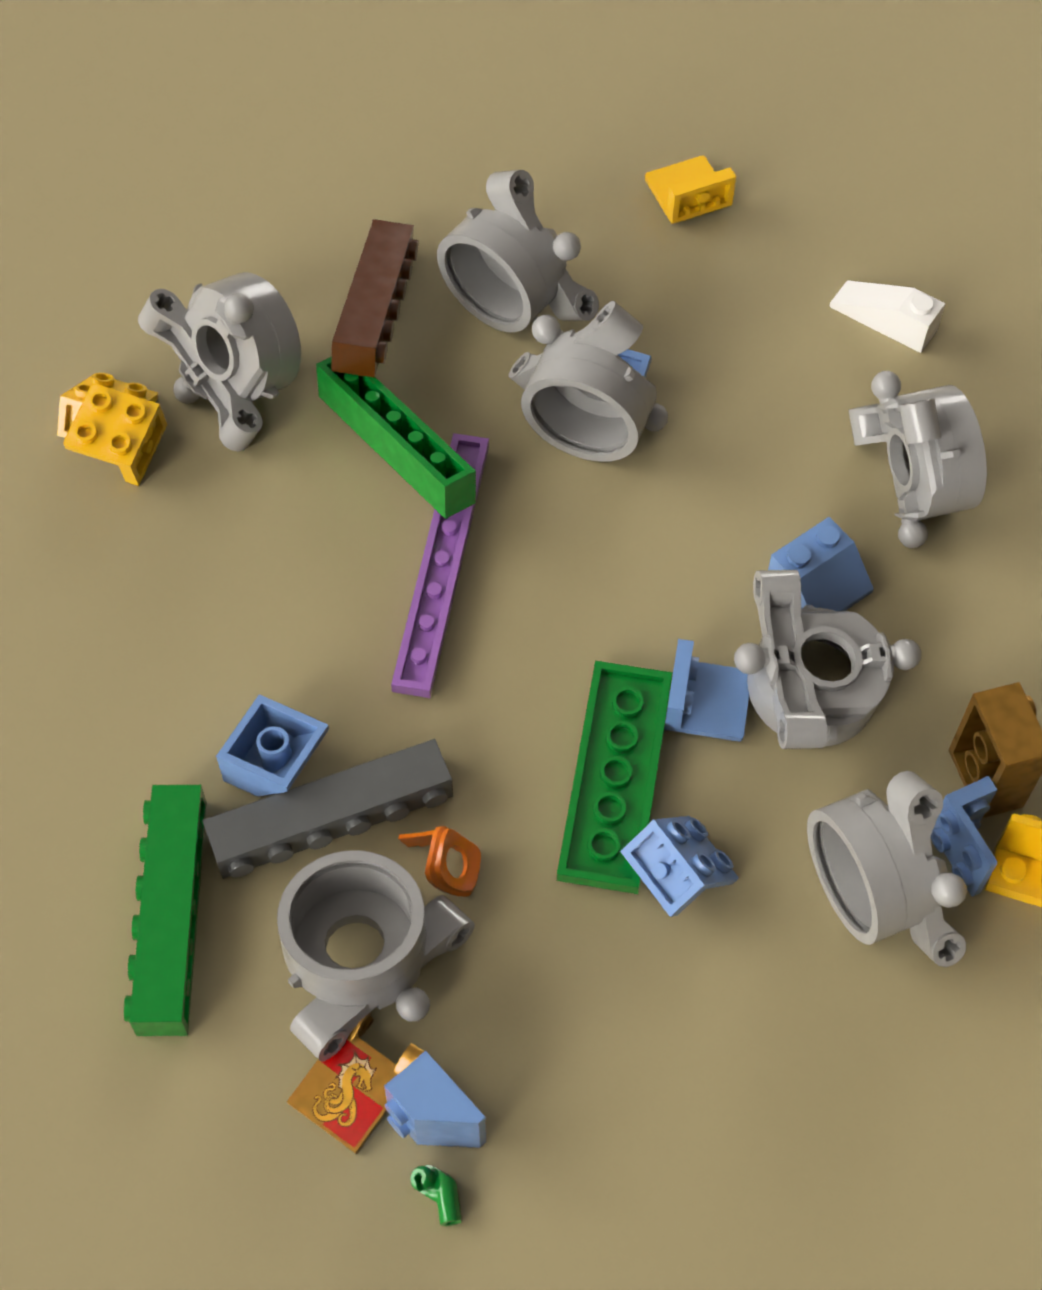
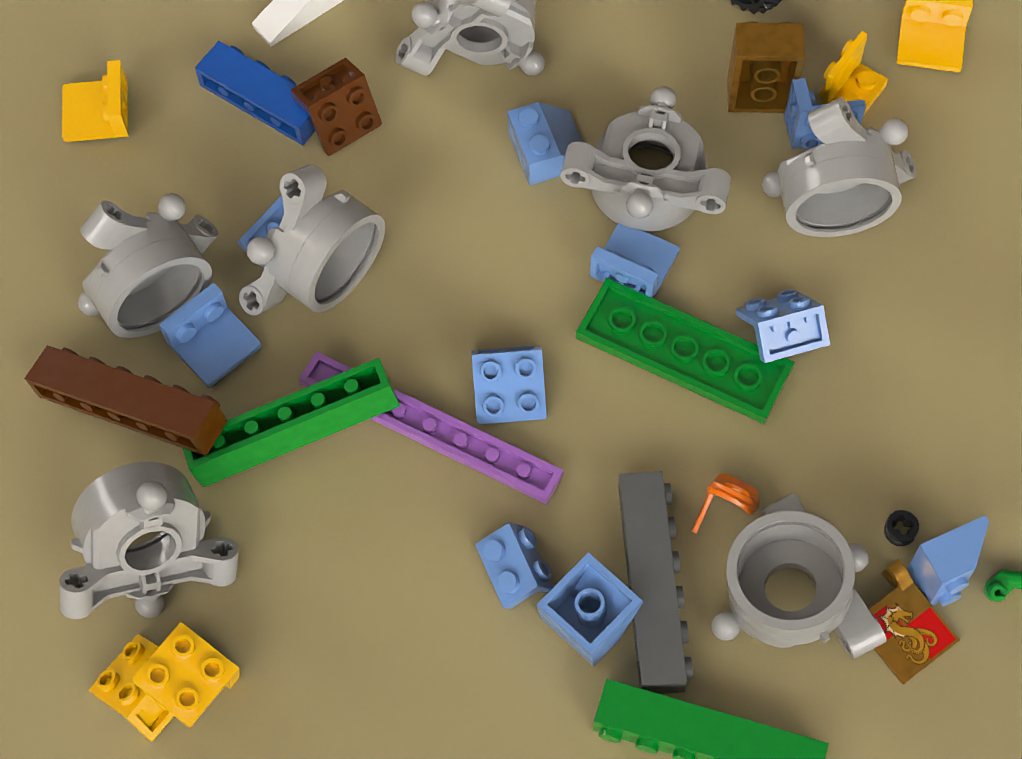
camera: 70 degrees left, 5 degrees up
(315, 678) = (514, 564): none -> medium blue bracket
(462, 1053) = (894, 535): none -> black bush
(476, 348) = (209, 336): none -> medium blue bracket
(516, 614) = (509, 384): none -> medium blue bracket
(764, 309) = (254, 90): none -> blue brick
(769, 369) = (338, 105): none -> reddish brown bracket

